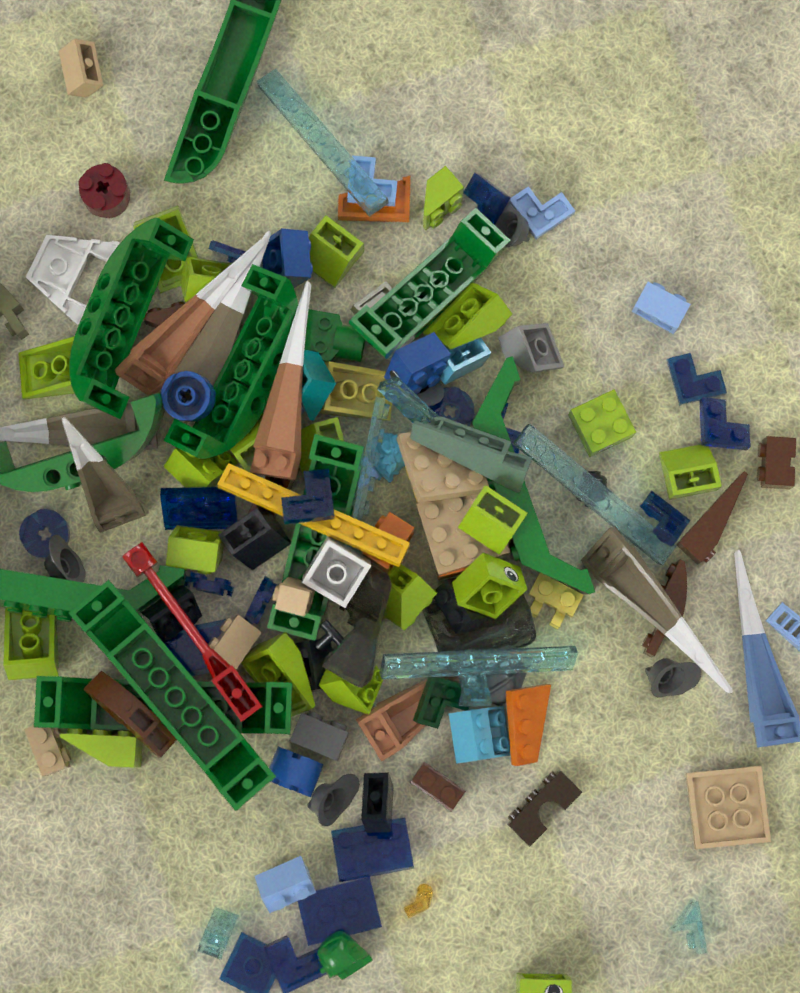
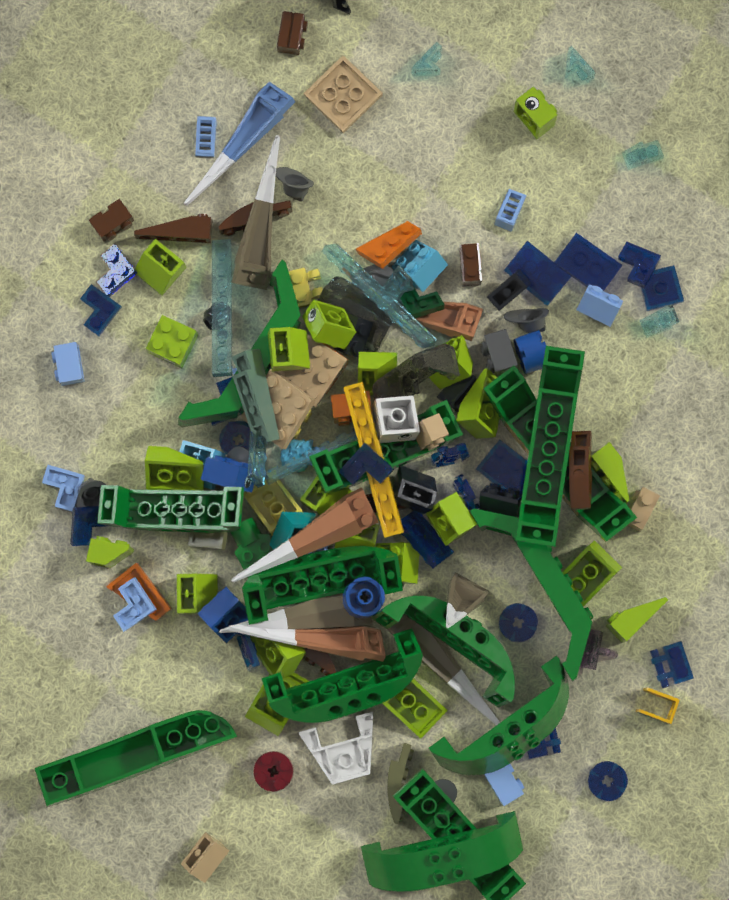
camera: 125 degrees left, 0 degrees up
(63, 561) = (526, 592): dark grey piece -> none
(223, 674) = (512, 433): red bar -> none
(235, 640) = (489, 449): tan brick -> none
(322, 142) = (130, 657): clear light blue plate -> none
(331, 635) = (435, 383): black shield -> none
(341, 955) = (611, 241): green helmet -> none
(422, 901) = (543, 222): clear yellow arm -> none
(453, 860) = (507, 221): none -> light blue slope
(526, 821) = (415, 197): dark brown arch -> none
(532, 347) = (159, 420): light grey slope -> none
(671, 521) = (198, 255): clear blue plate -> none

